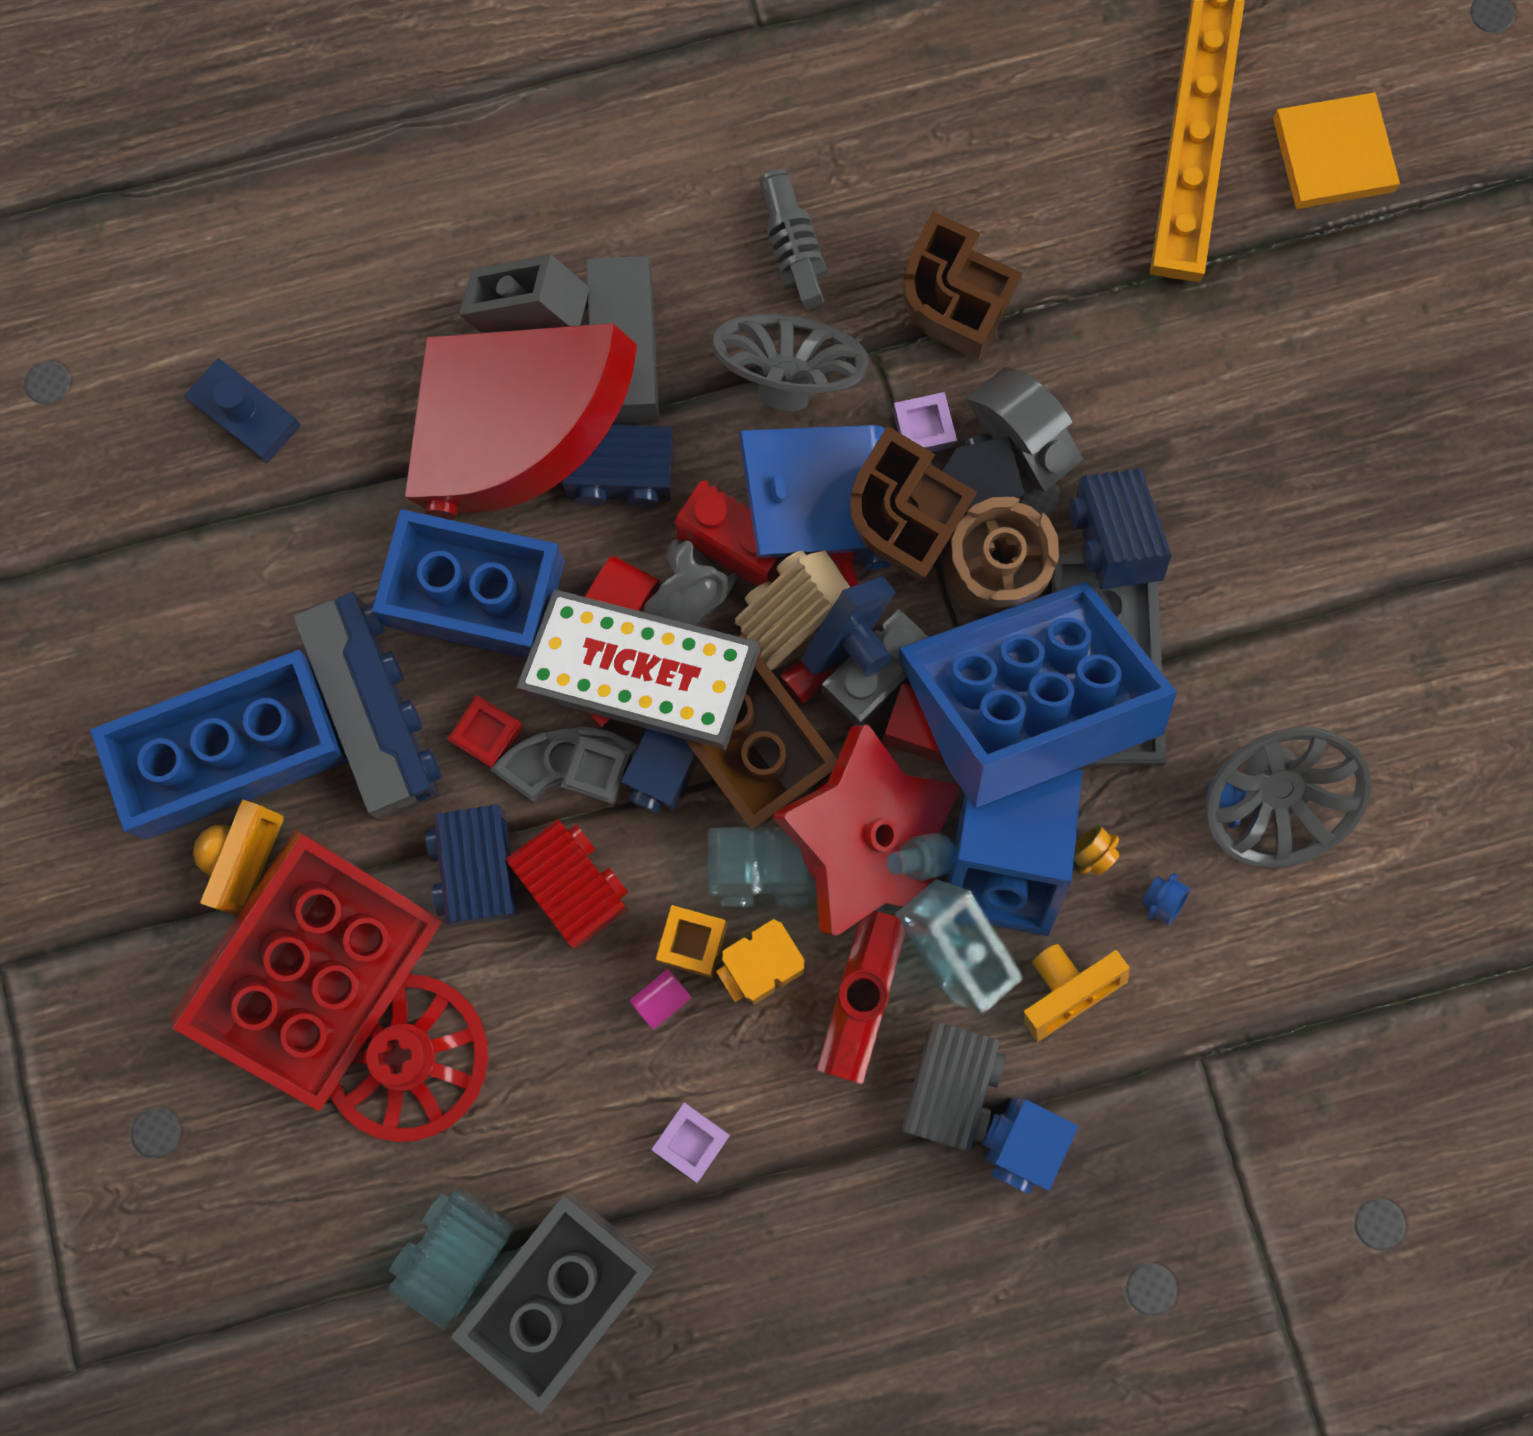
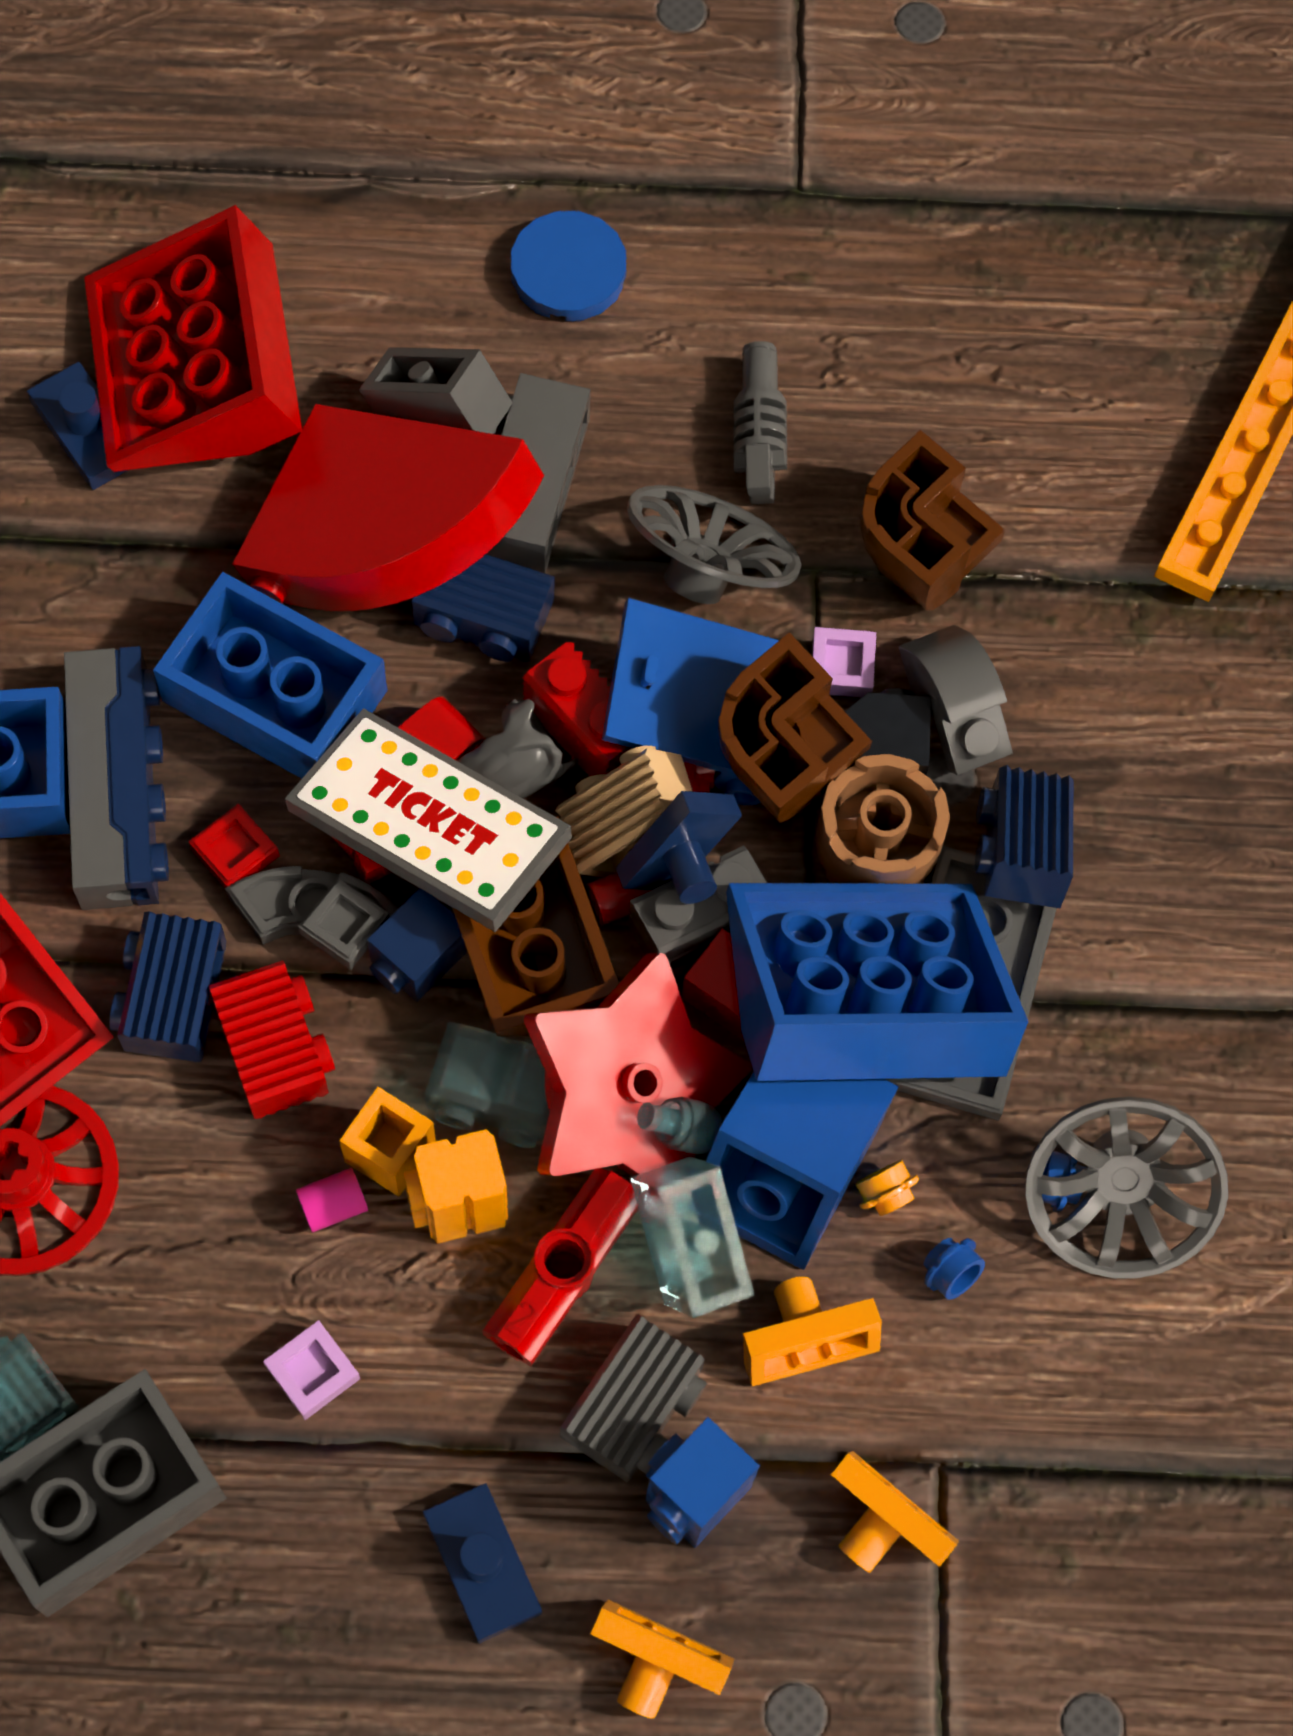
camera: 10 degrees right, 10 degrees down
(308, 318) = (192, 348): none -> red slope
(593, 150) = (568, 265): none -> blue tile
(874, 1251) = (482, 1563): none -> dark blue tile
(1036, 1283) = (658, 1657): none -> light orange tile
(1178, 1116) = (887, 1518): none -> light orange tile

